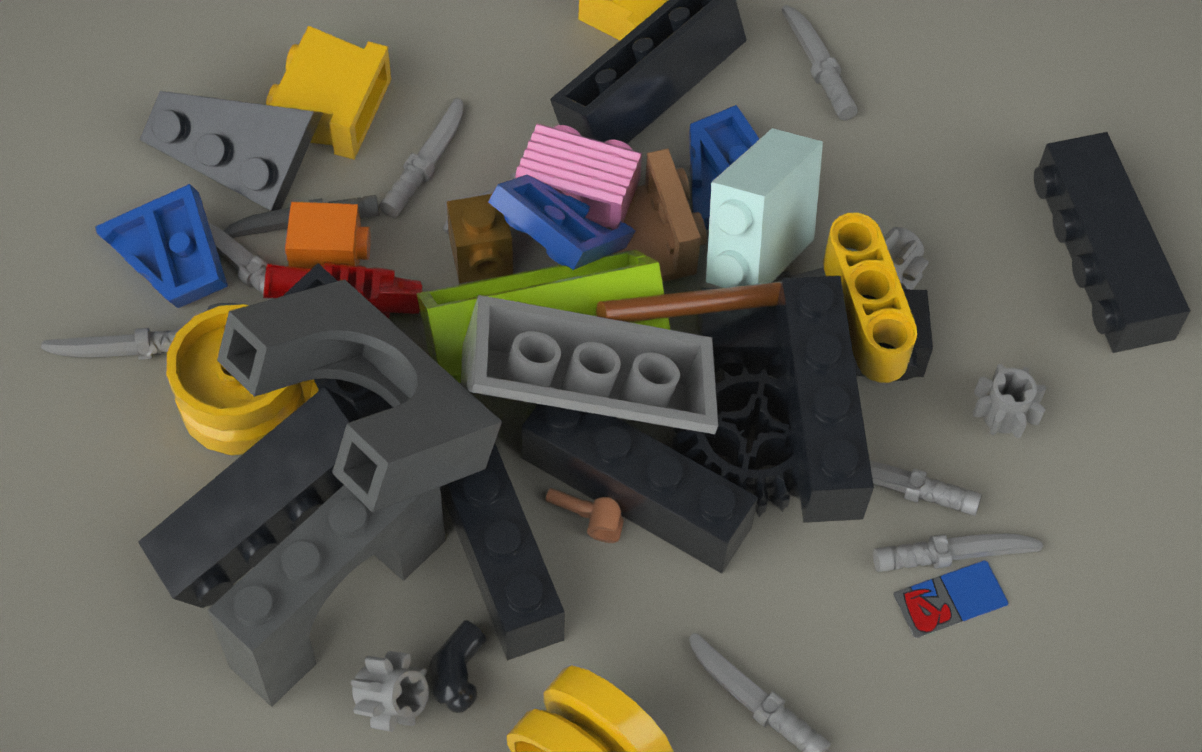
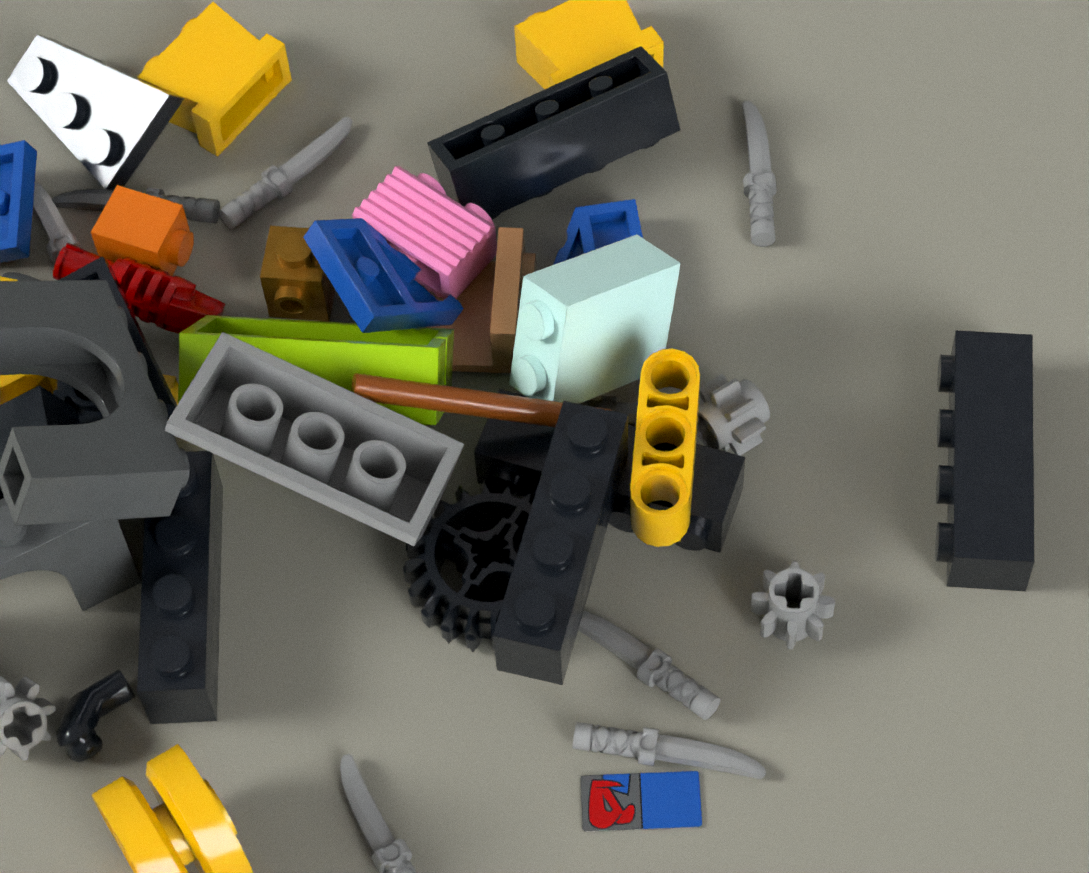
camera: 25 degrees right, 0 degrees up
(604, 514) = (306, 606): nougat hand -> none
(646, 479) = (360, 585): black brick -> none

